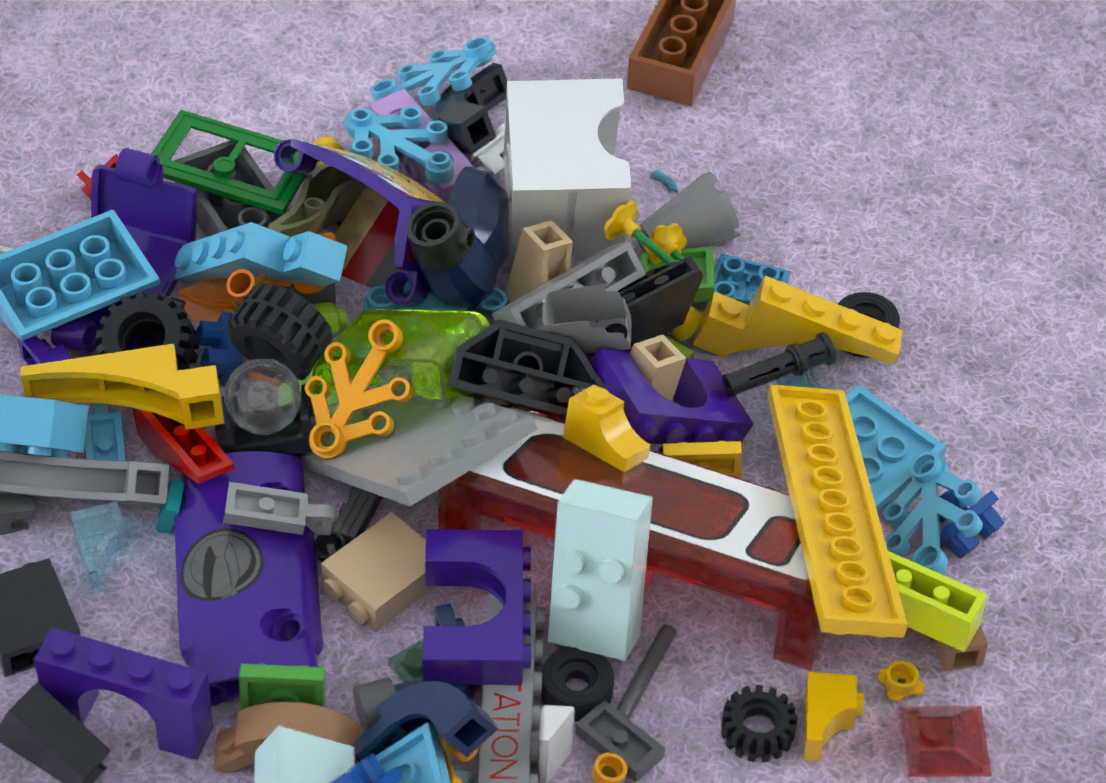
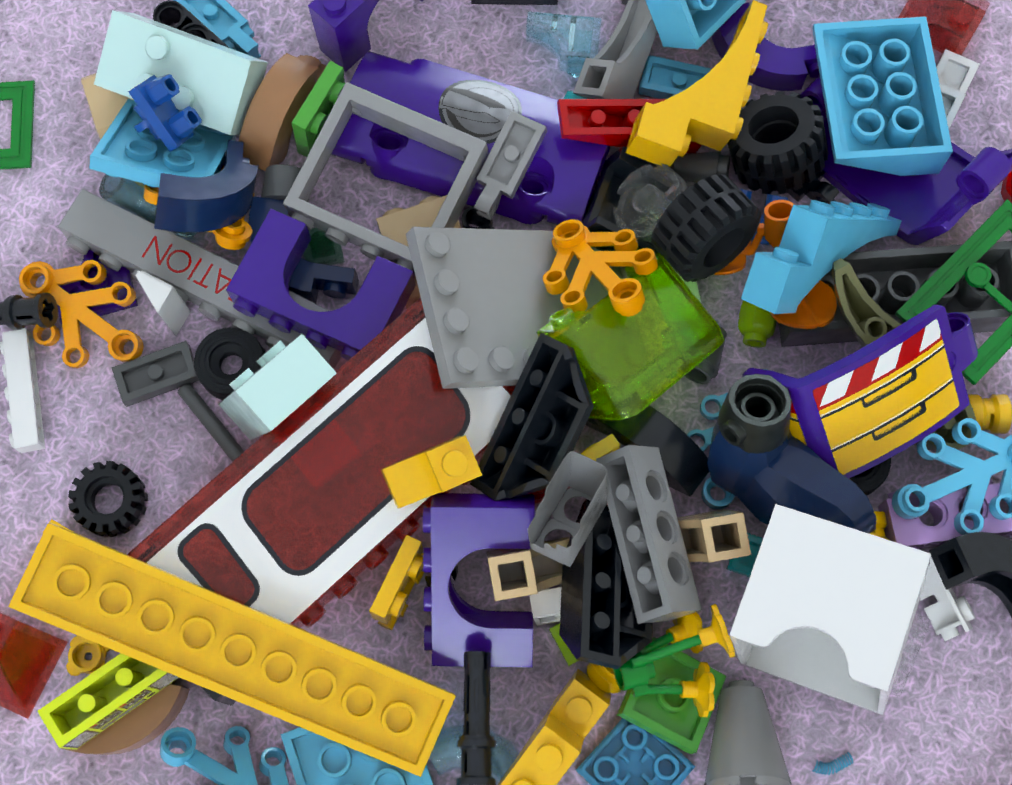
camera: 120 degrees right, 25 degrees up
(343, 654) = (400, 120): none -> light grey window

